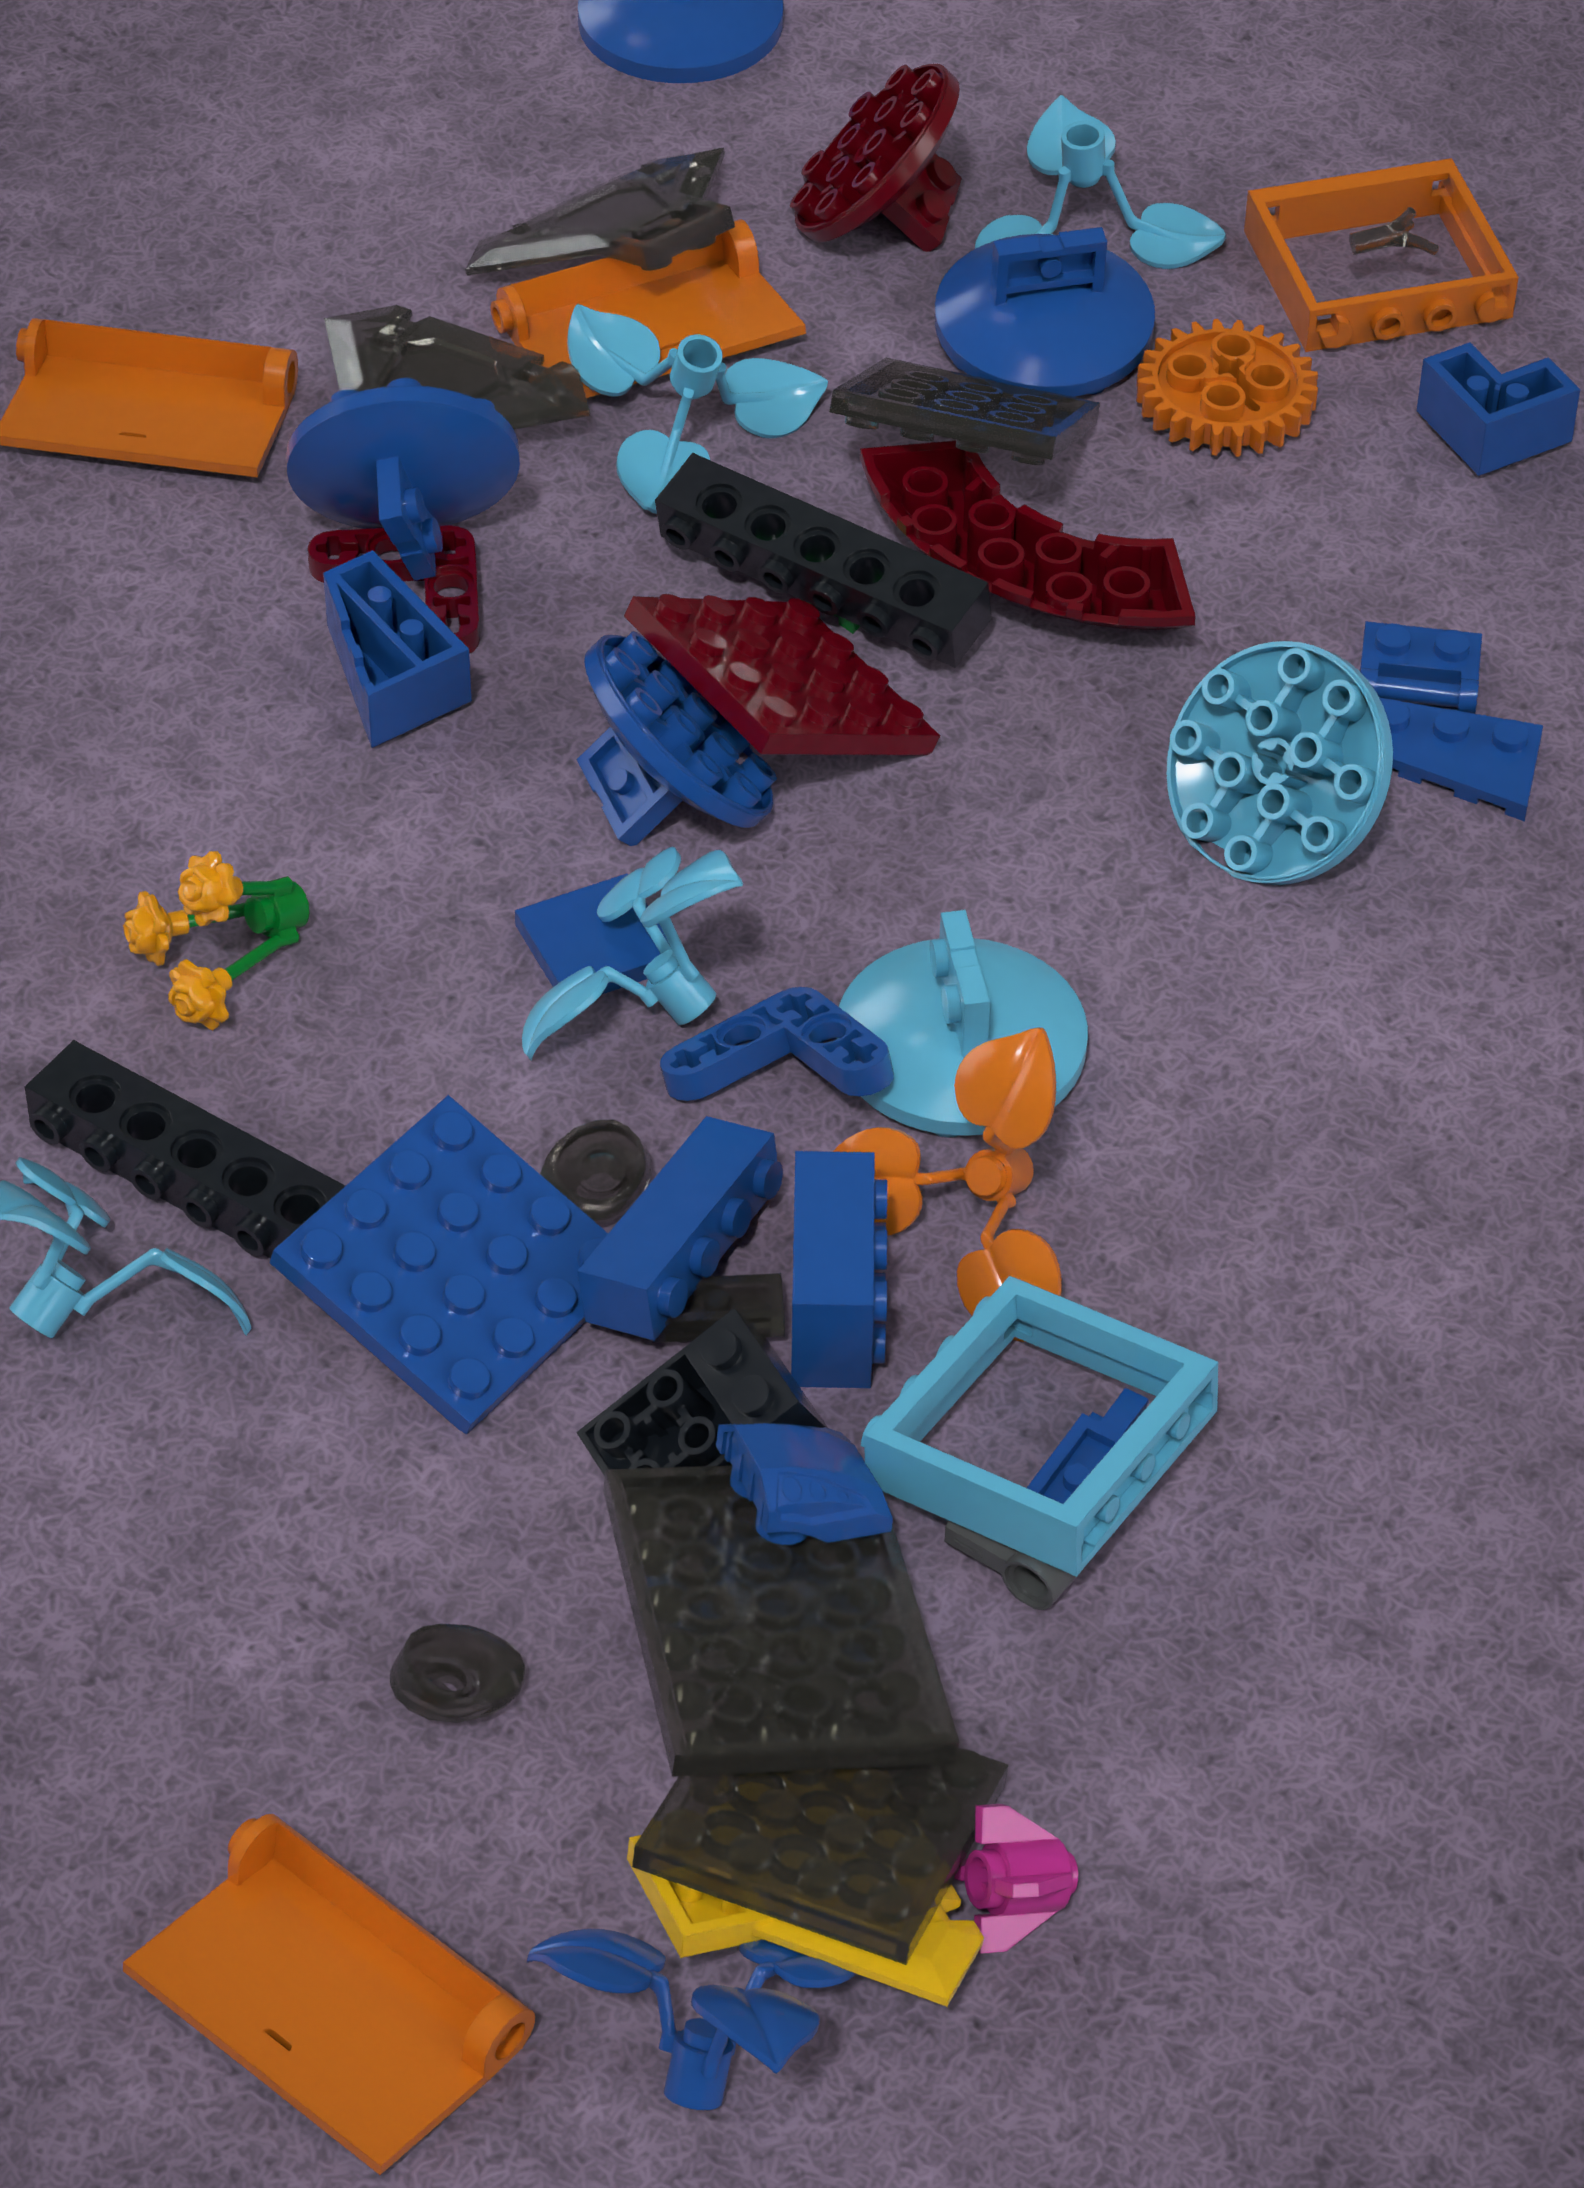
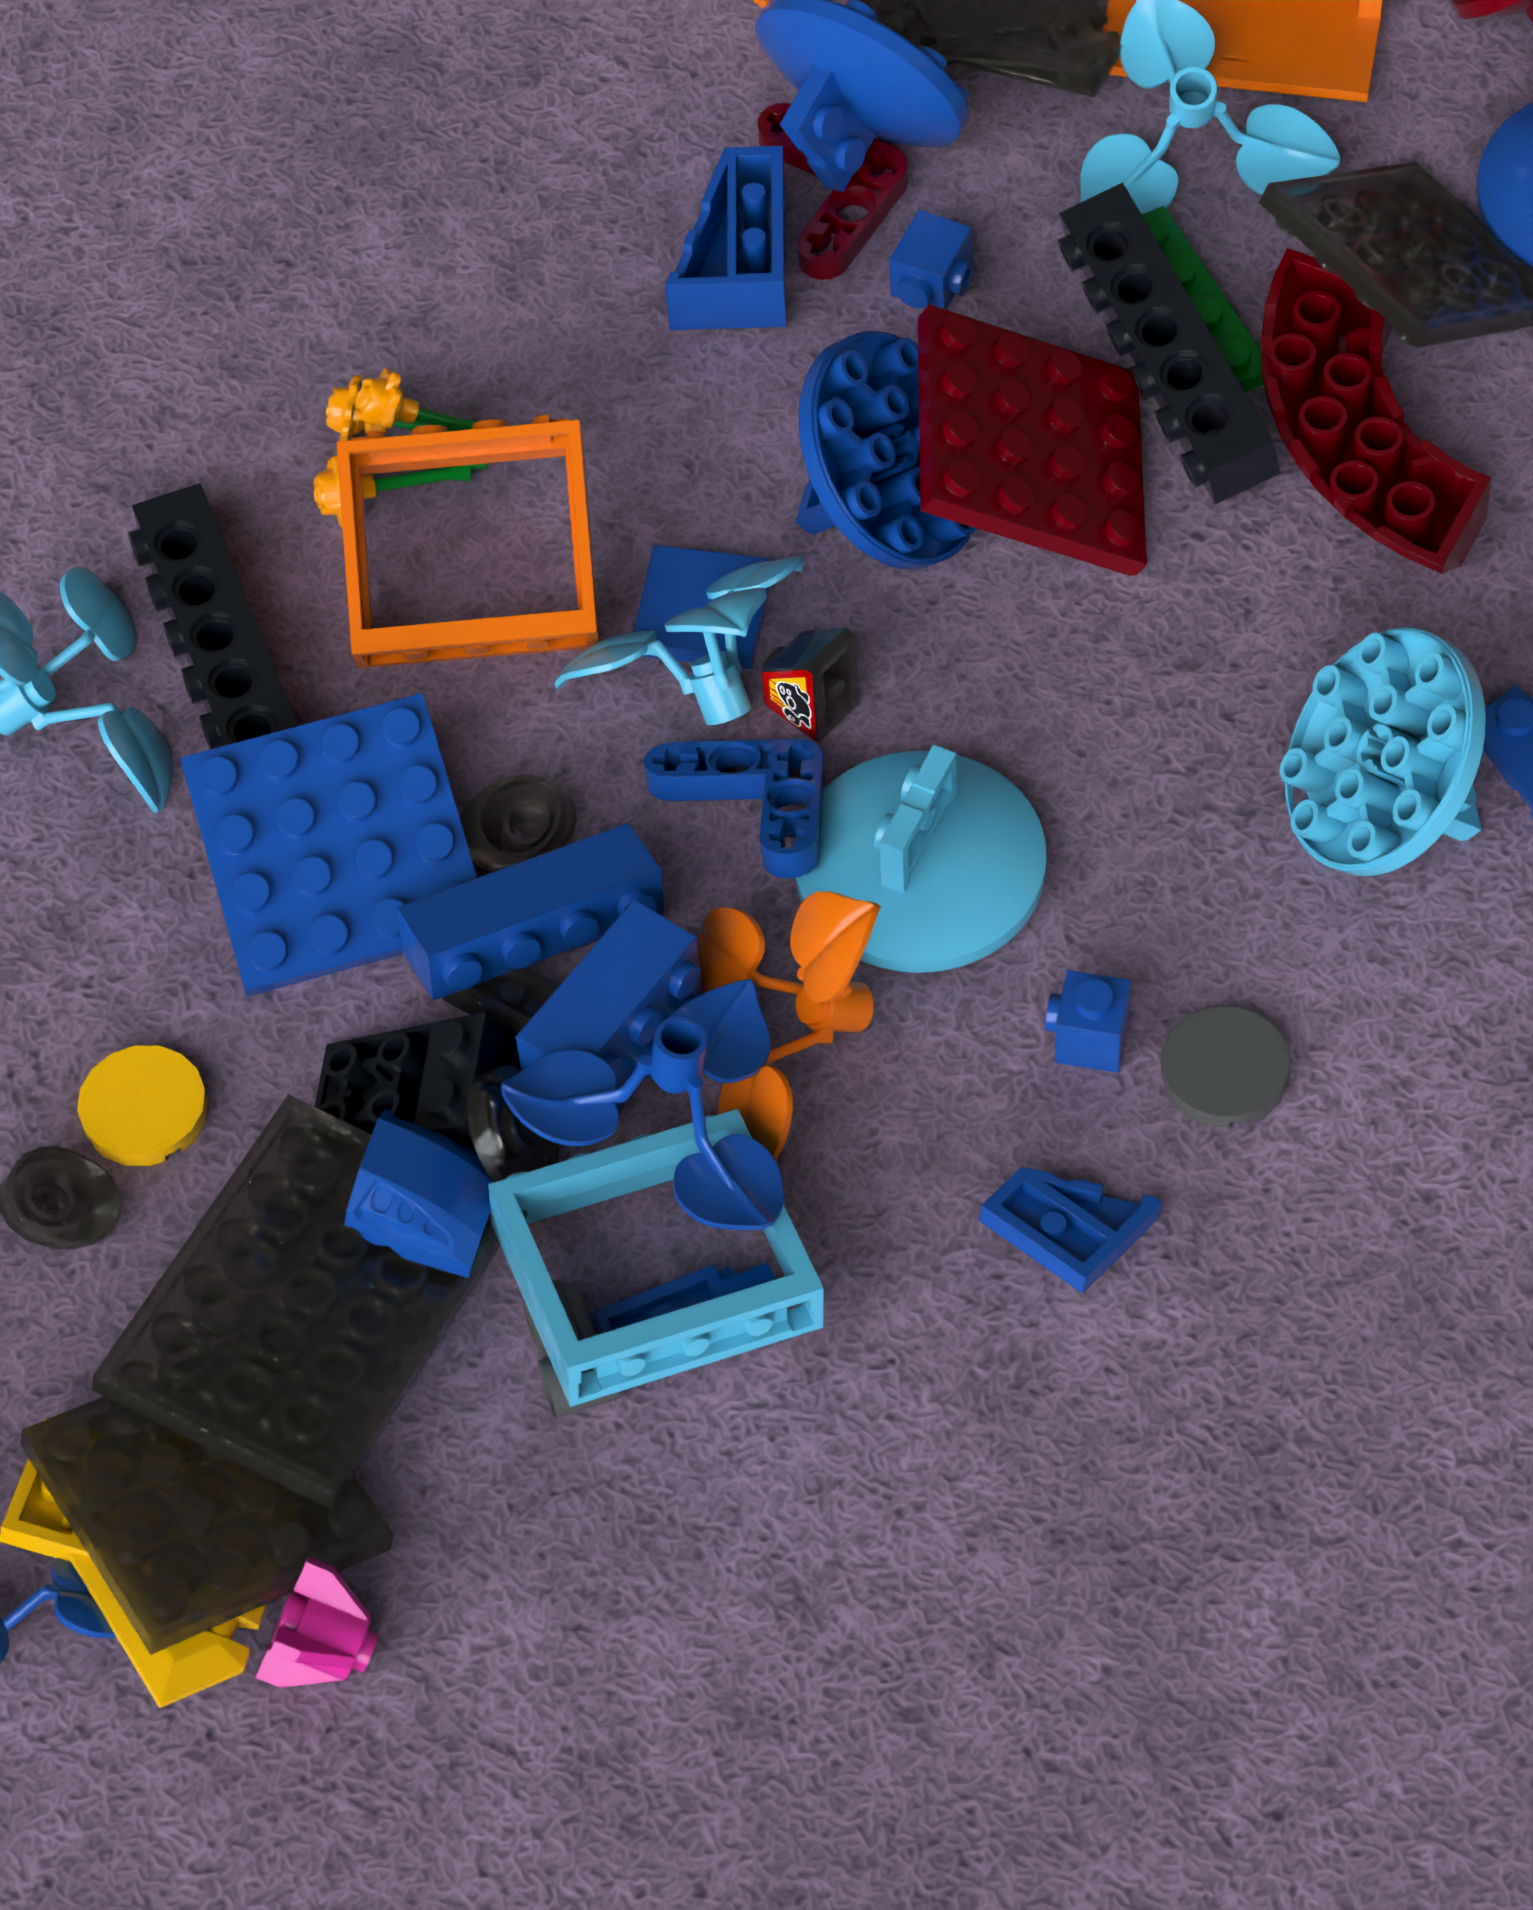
camera: 40 degrees right, 10 degrees up
(330, 876) = (475, 638): none -> orange window
(456, 1563) = (142, 1105): none -> yellow tile
(561, 594) = (931, 261): none -> blue brick
(753, 937) = (813, 680): none -> clear smoke slope
(822, 1391) = (498, 1135): none -> clear smoke tile
(964, 1229) = (719, 1034): none -> blue plant
(1216, 1077) = (1090, 1020): none -> blue brick
(1328, 1238) = (1067, 1223): none -> blue wing
(1339, 1064) = (1225, 1066): none -> dark grey tile

